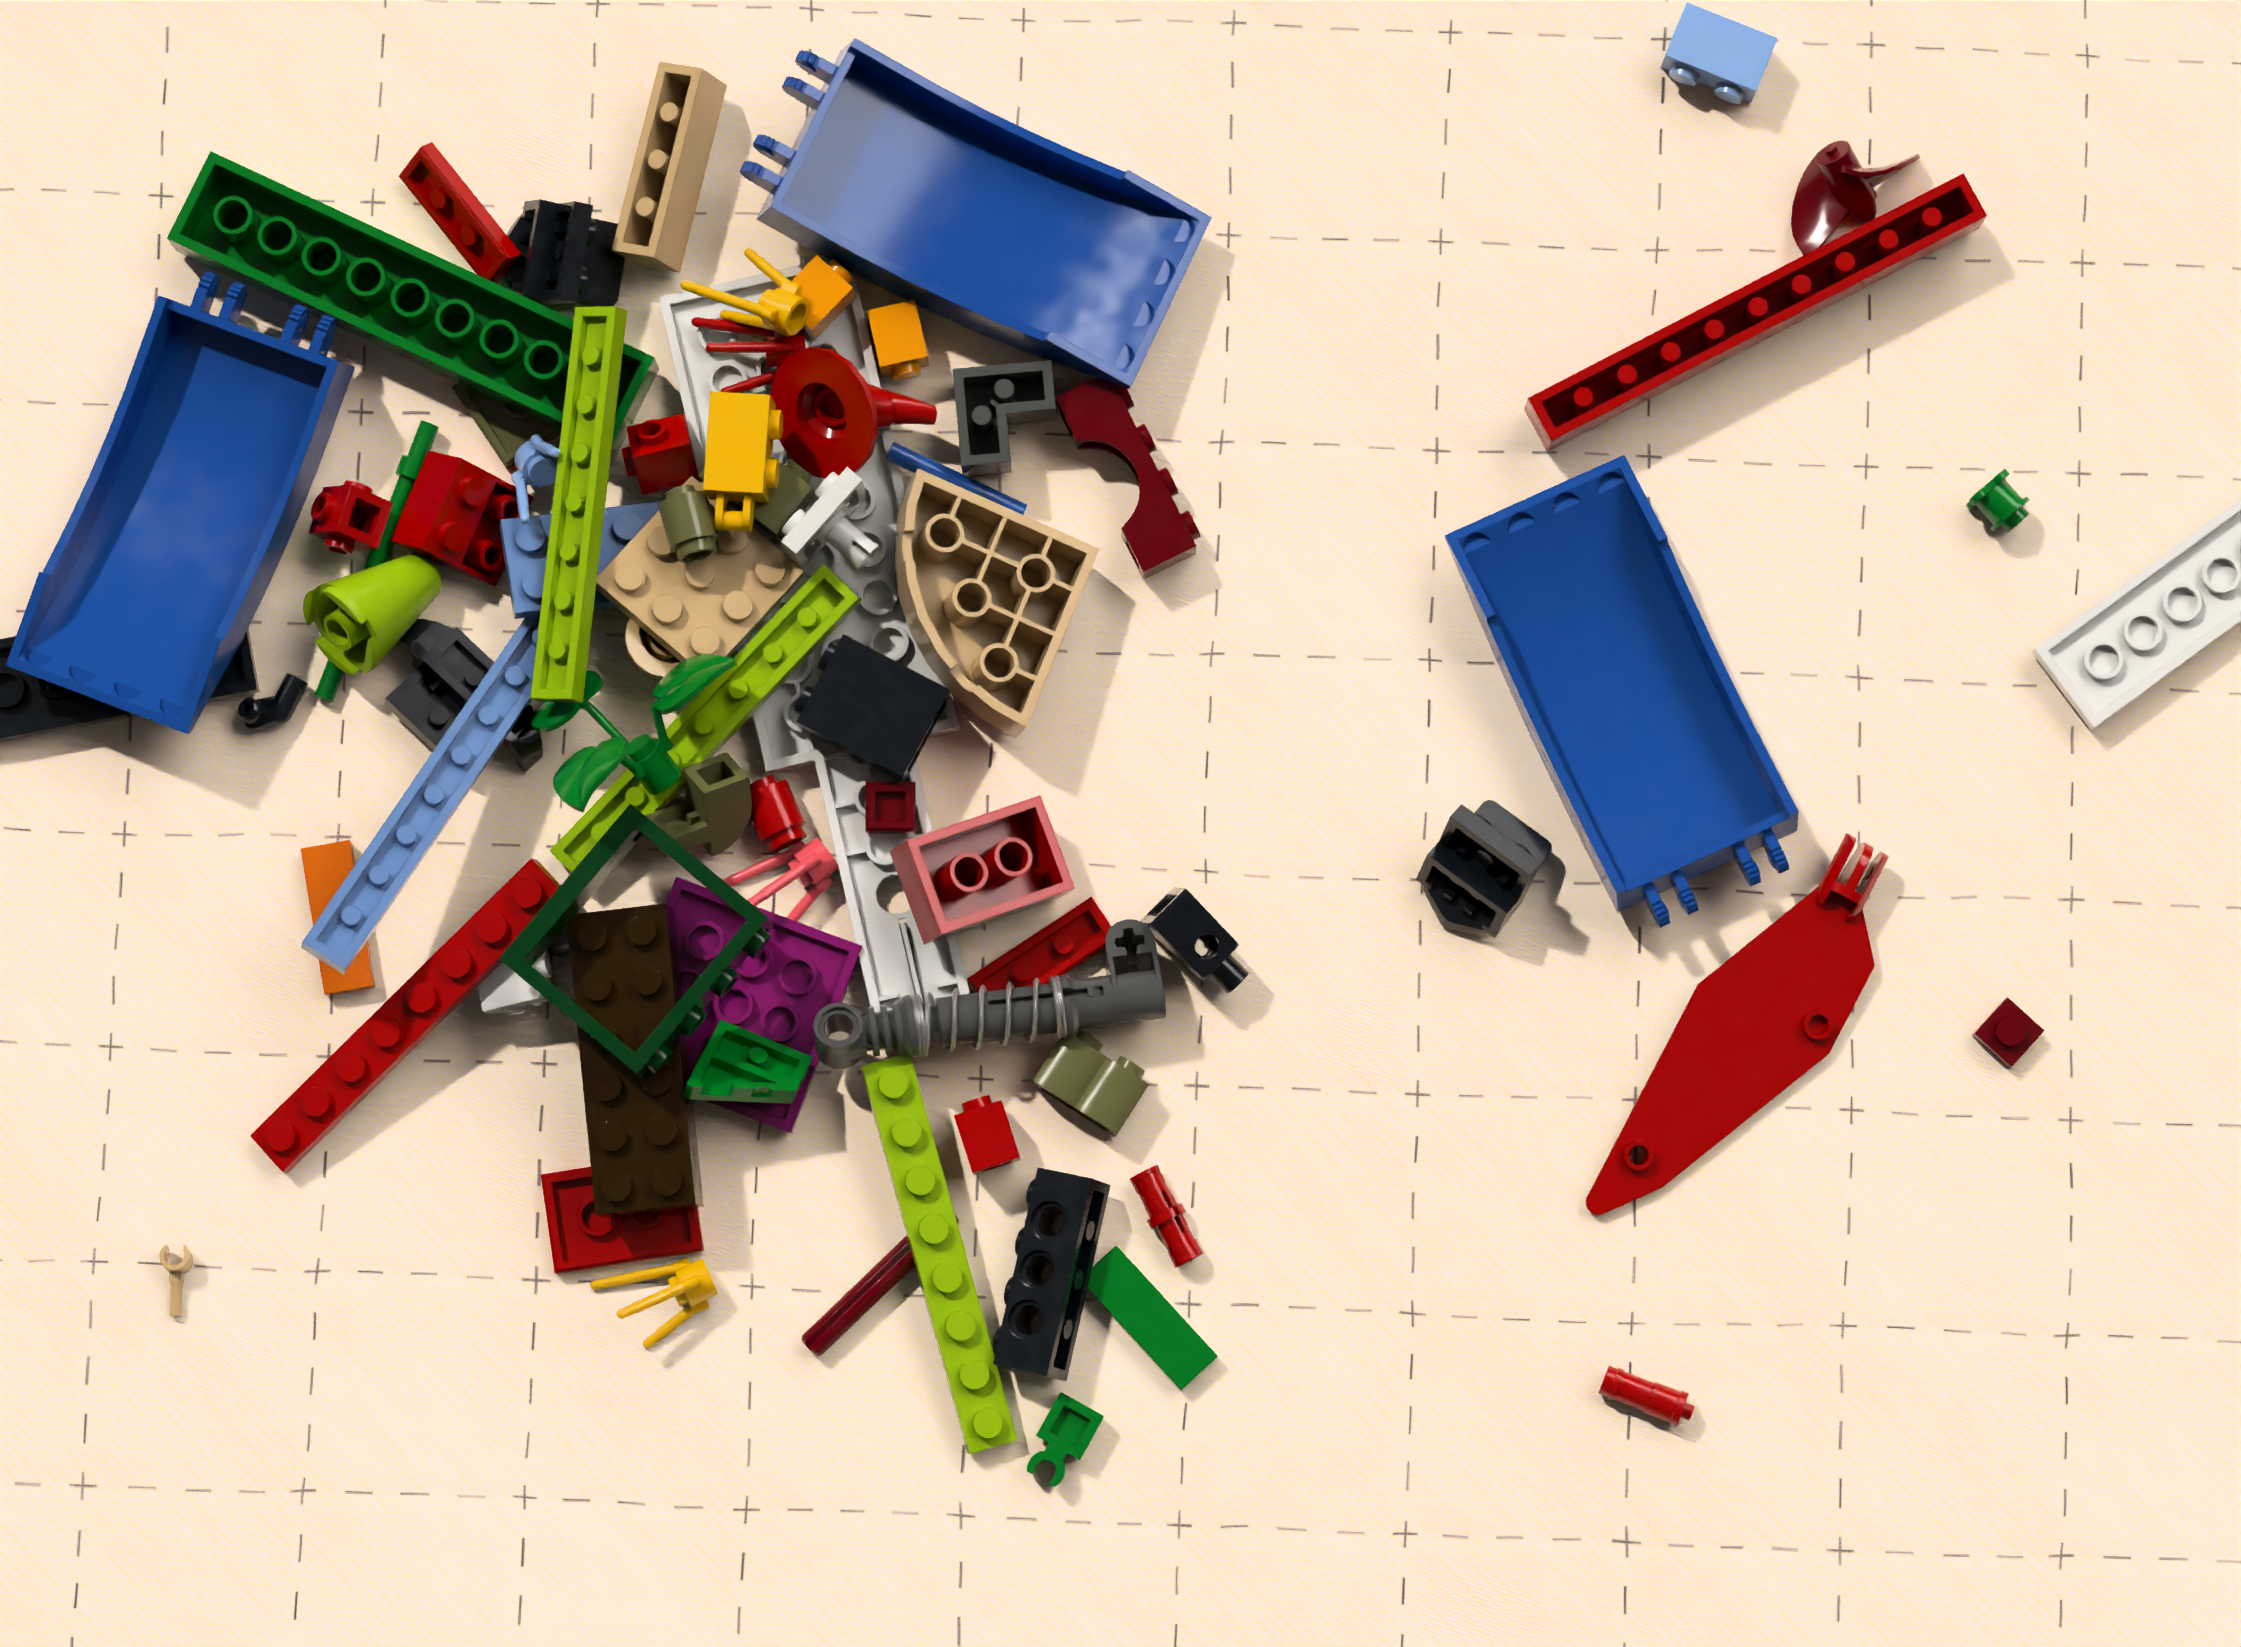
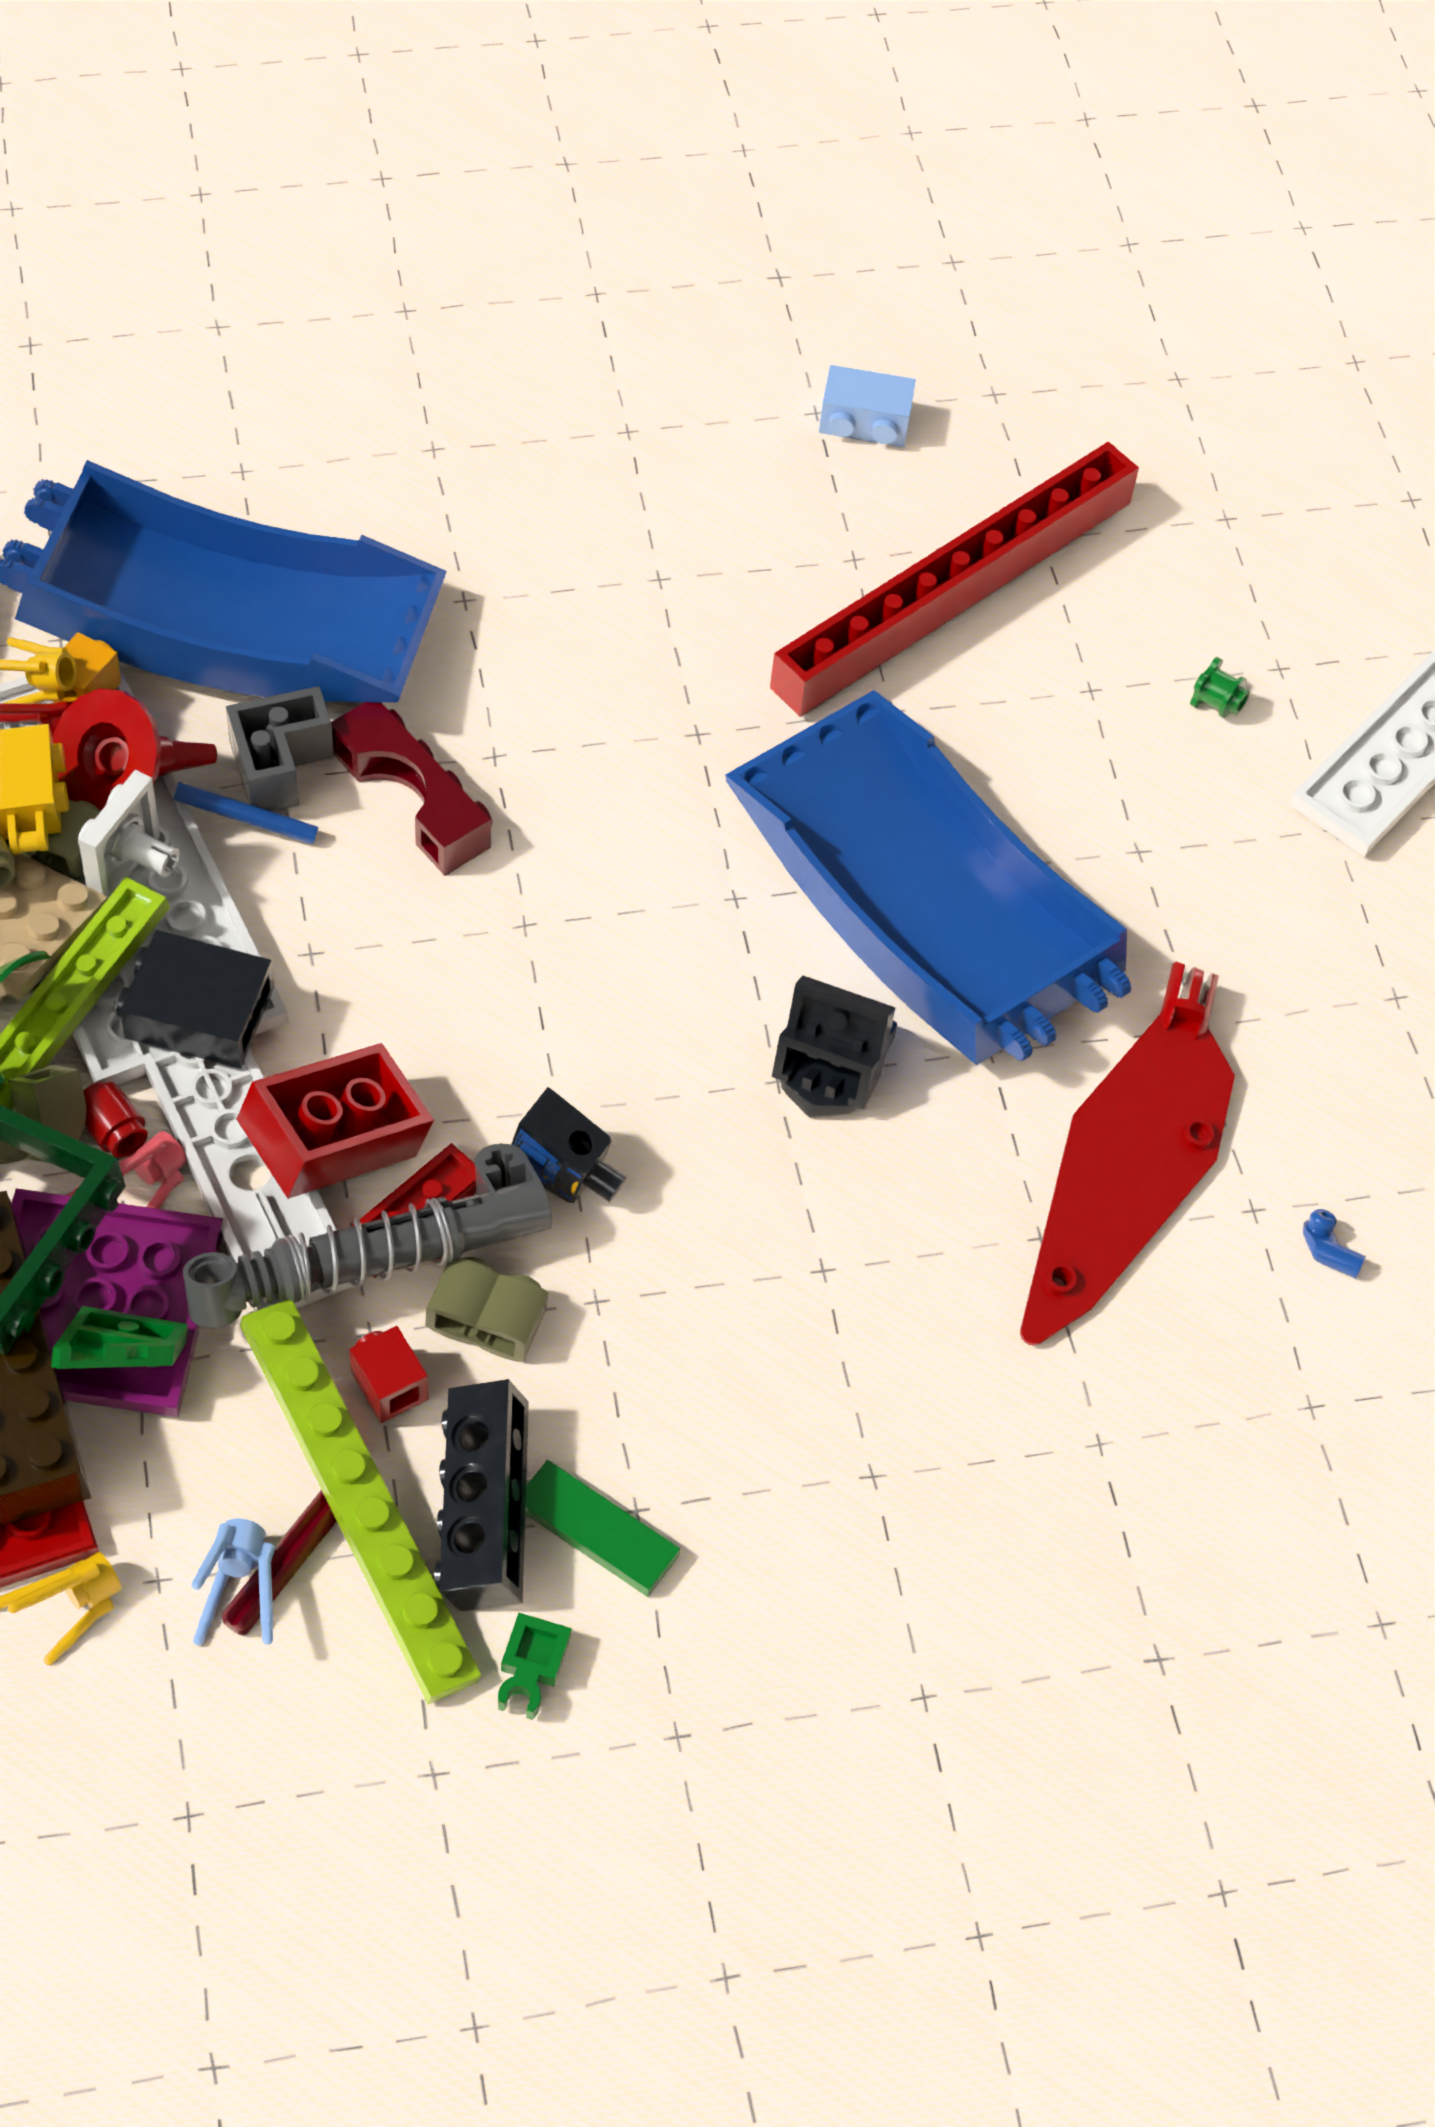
camera: 20 degrees left, 25 degrees down
(822, 1284) = (238, 1550): none -> light blue plant
(890, 807) = (227, 1086): dark red tile -> none
(898, 340) = (171, 705): light orange brick -> none
(985, 595) = (291, 884): tan brick -> none
(1166, 1216) = (593, 1423): red pin -> none
(1645, 1395) = (1137, 1504): red piece -> none
(1831, 189) = (1005, 475): dark red piece -> none
(1906, 1166) = (1325, 1247): none -> blue arm
(2008, 1032) = (1379, 1114): dark red plate -> none

